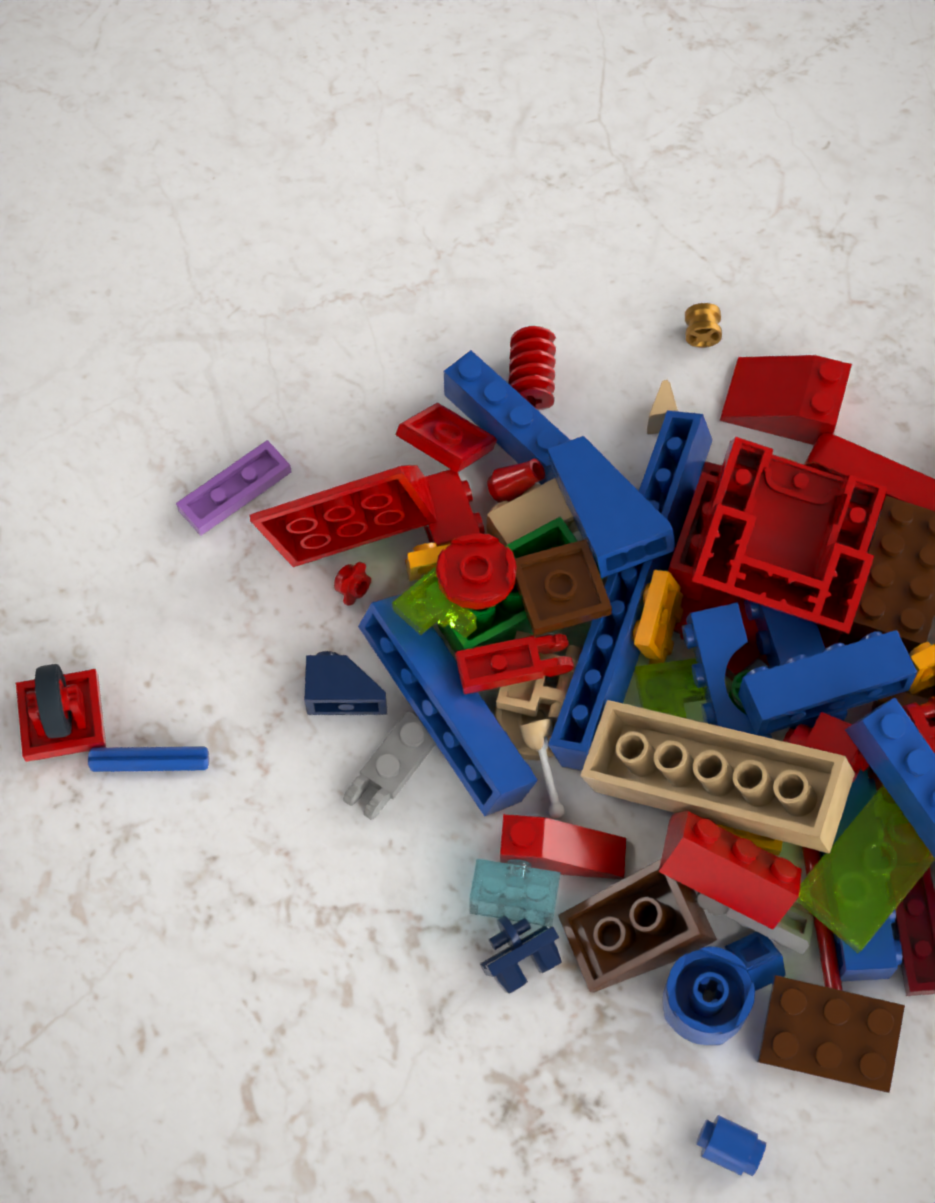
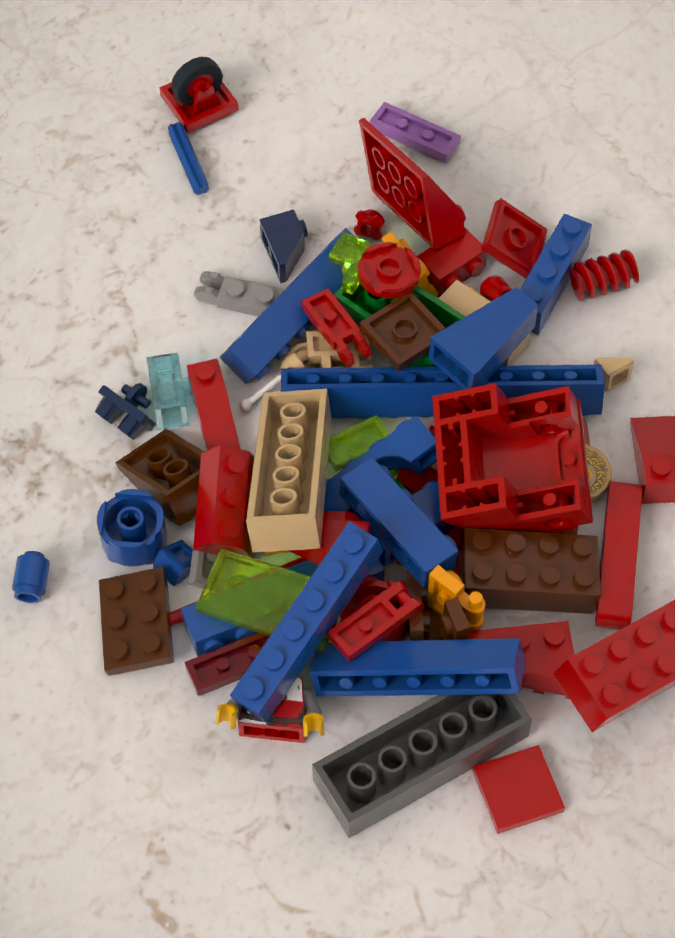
camera: 70 degrees right, 5 degrees down
(659, 616) = (406, 404): light orange plate -> none

